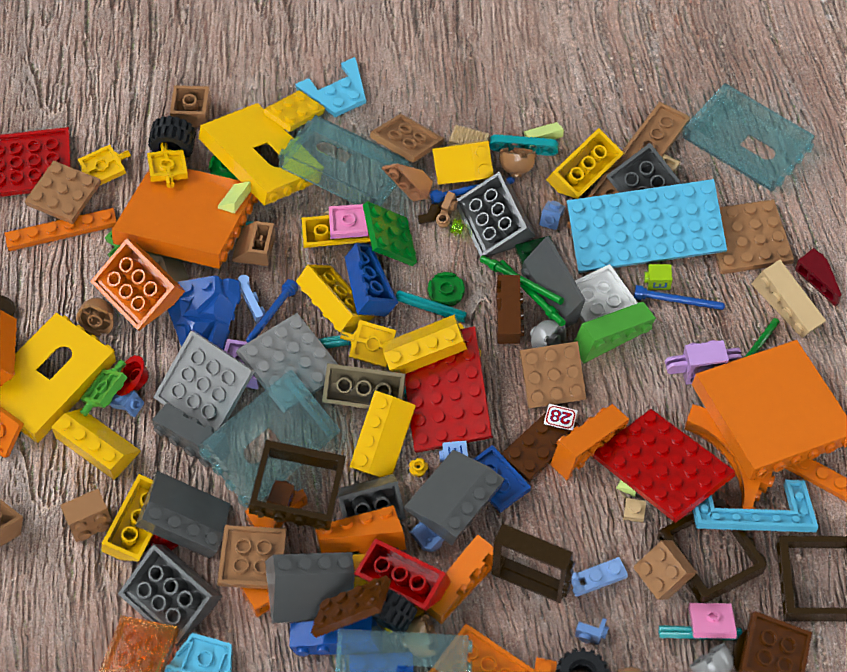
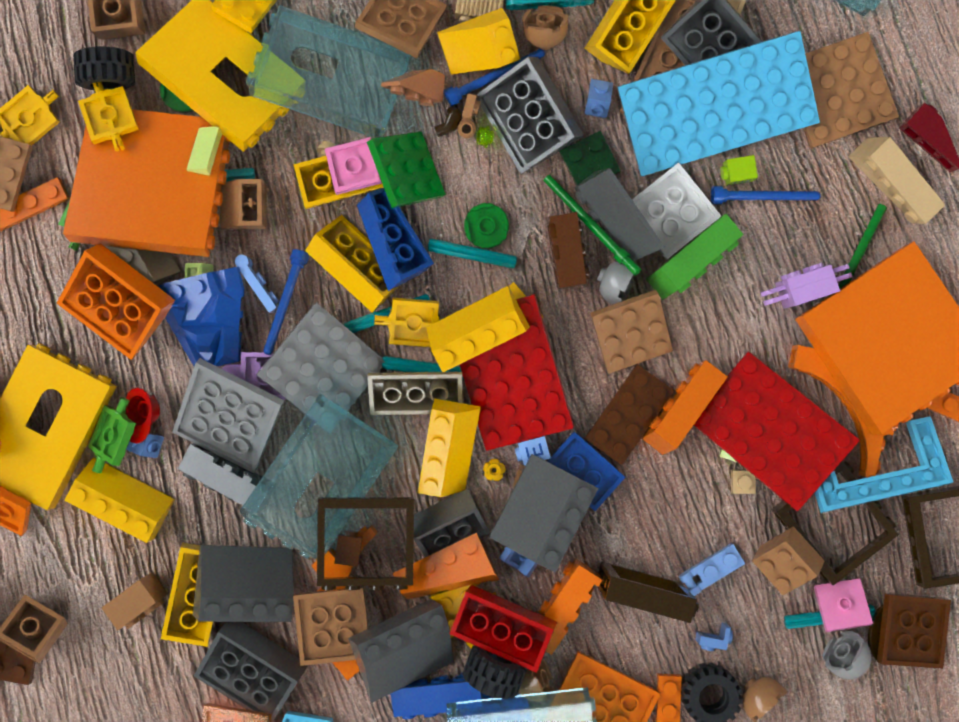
camera: 10 degrees left, 30 degrees up
(96, 316) = (76, 339): medium nougat cylinder -> none
(351, 606) = (456, 687): reddish brown plate -> none
(496, 266) = (541, 187): green bar -> none
(560, 417) = (647, 383): sticker -> none

